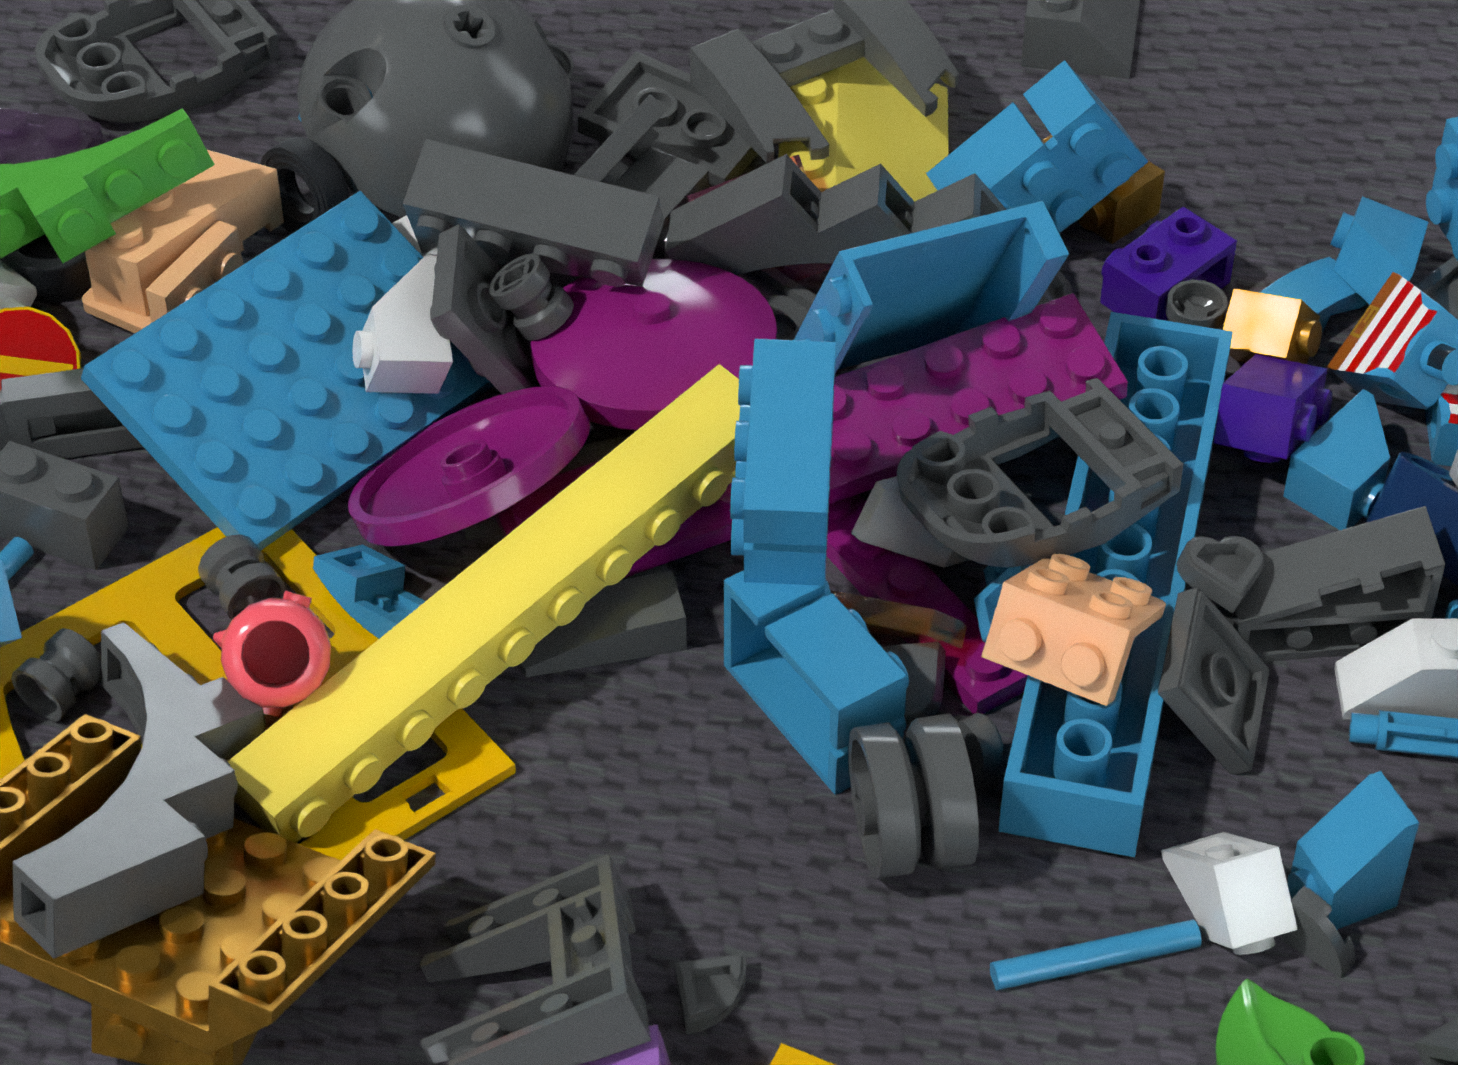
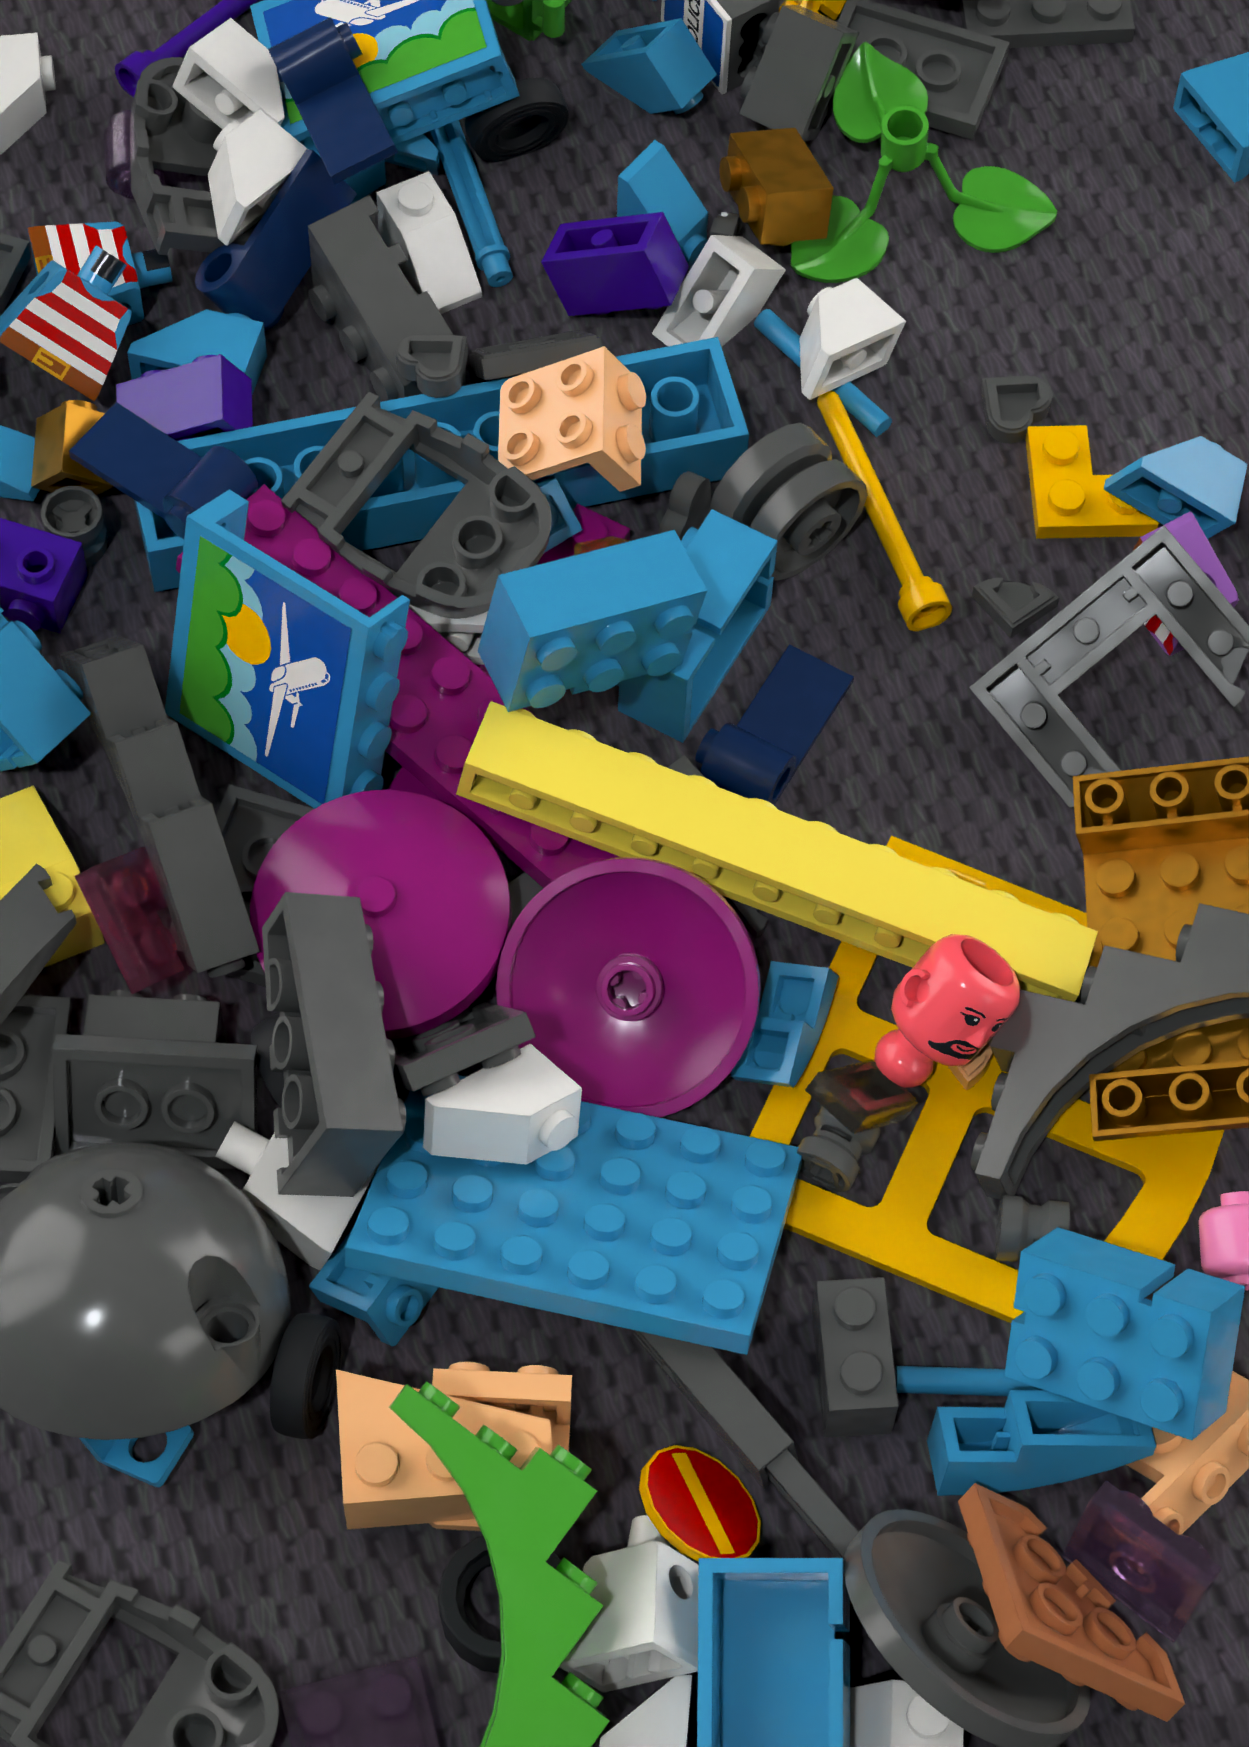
camera: 120 degrees left, 15 degrees up
(248, 559) = (861, 1096): none -> clear smoke tile
(528, 293) = (407, 1002): dark grey wheel -> none
(664, 701) = (776, 729): none -> dark blue door
(759, 900) = (921, 600): none -> yellow piece
(1111, 953) = (845, 337): none -> white slope
(1186, 341) = (158, 468): none -> dark blue door
(1294, 781) = (615, 264): none -> dark purple brick
(1349, 979) = (777, 186): none -> pearl gold brick

